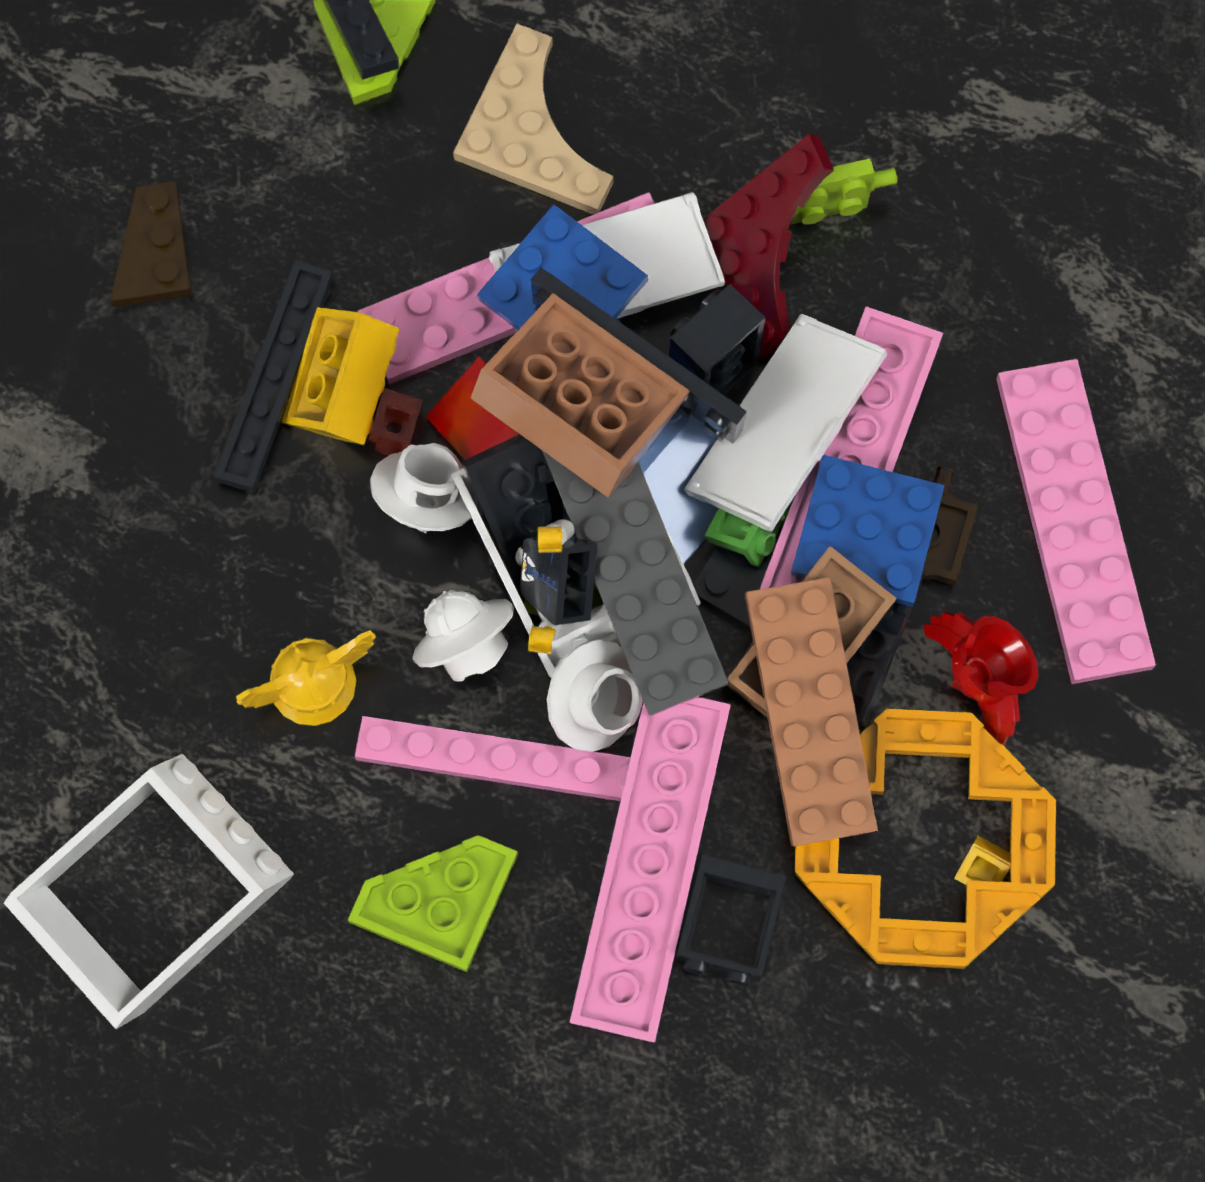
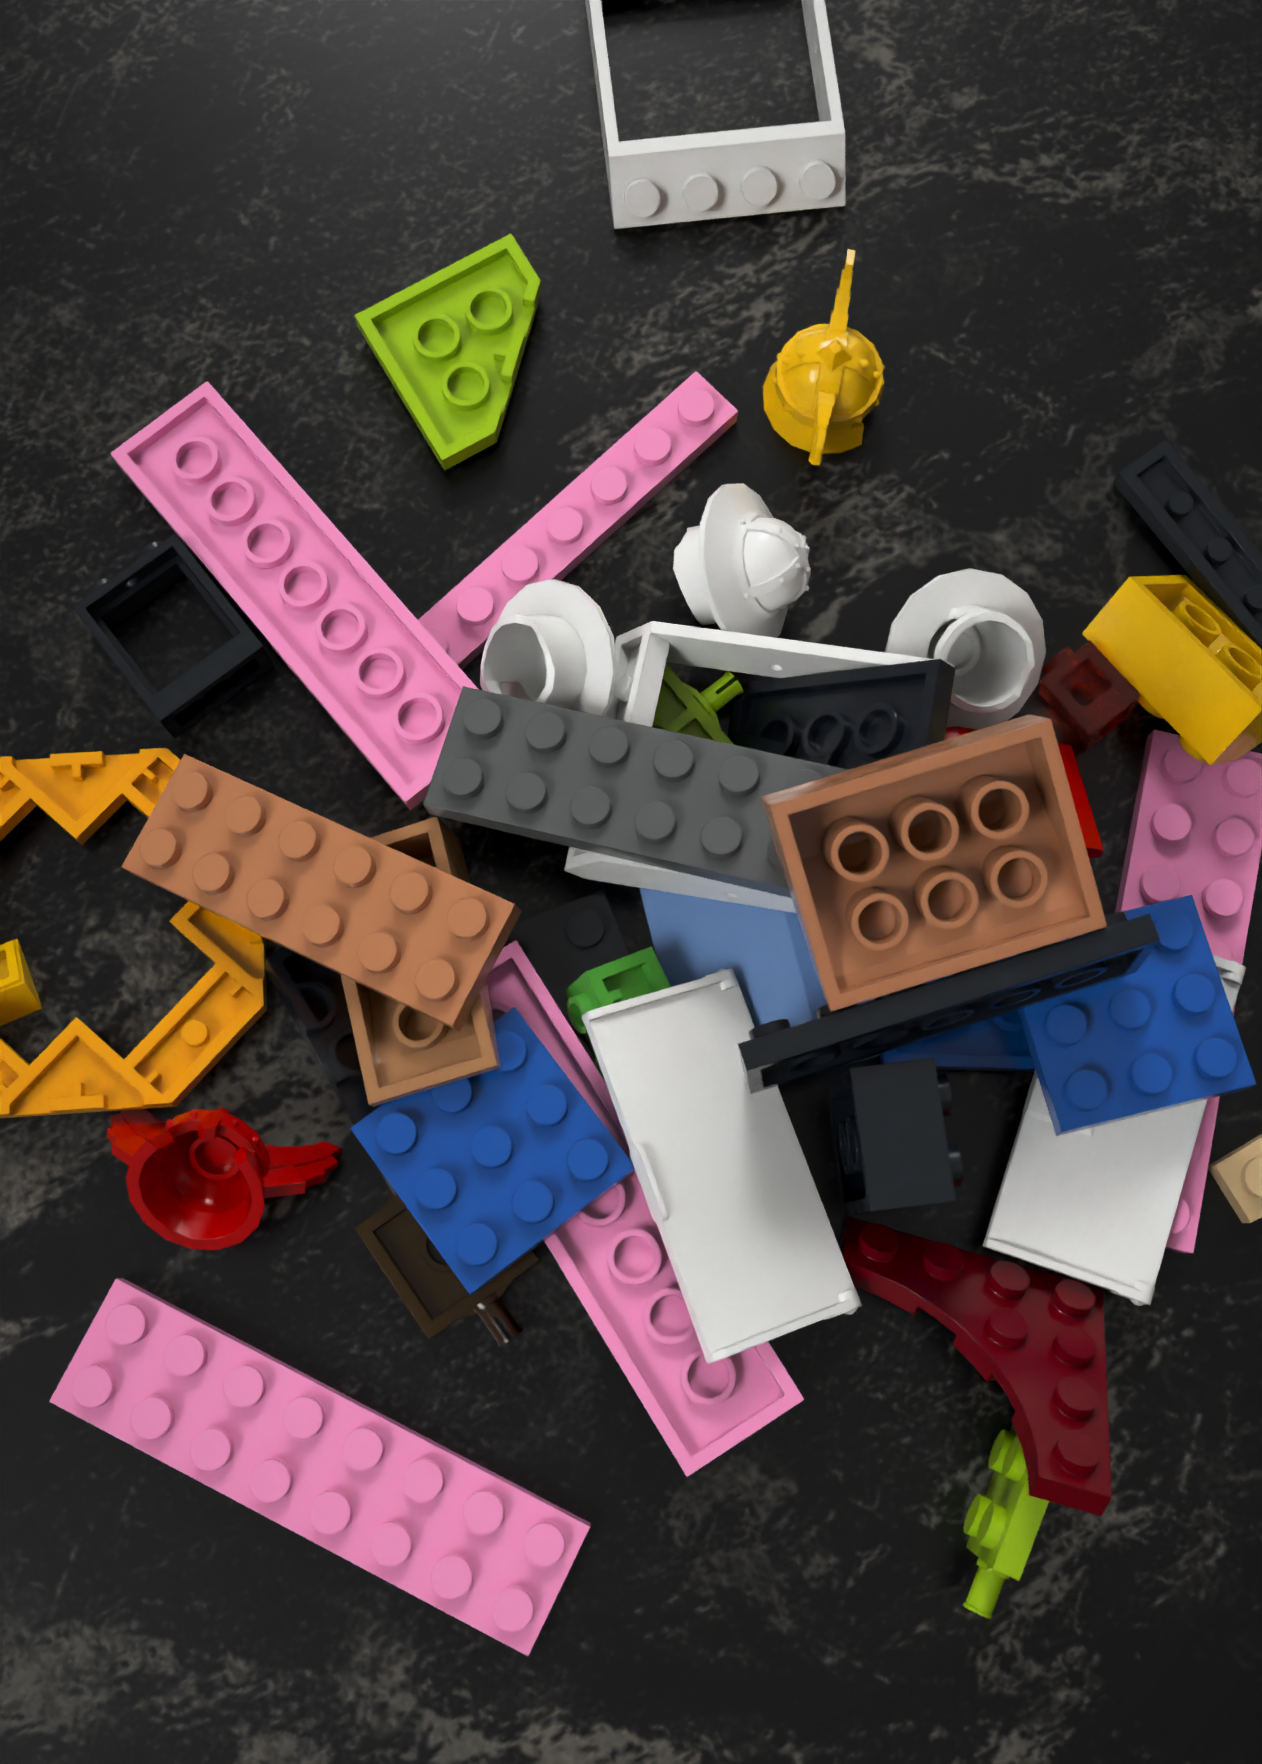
camera: 125 degrees right, 5 degrees up
(556, 580) = (710, 695): black torso -> none

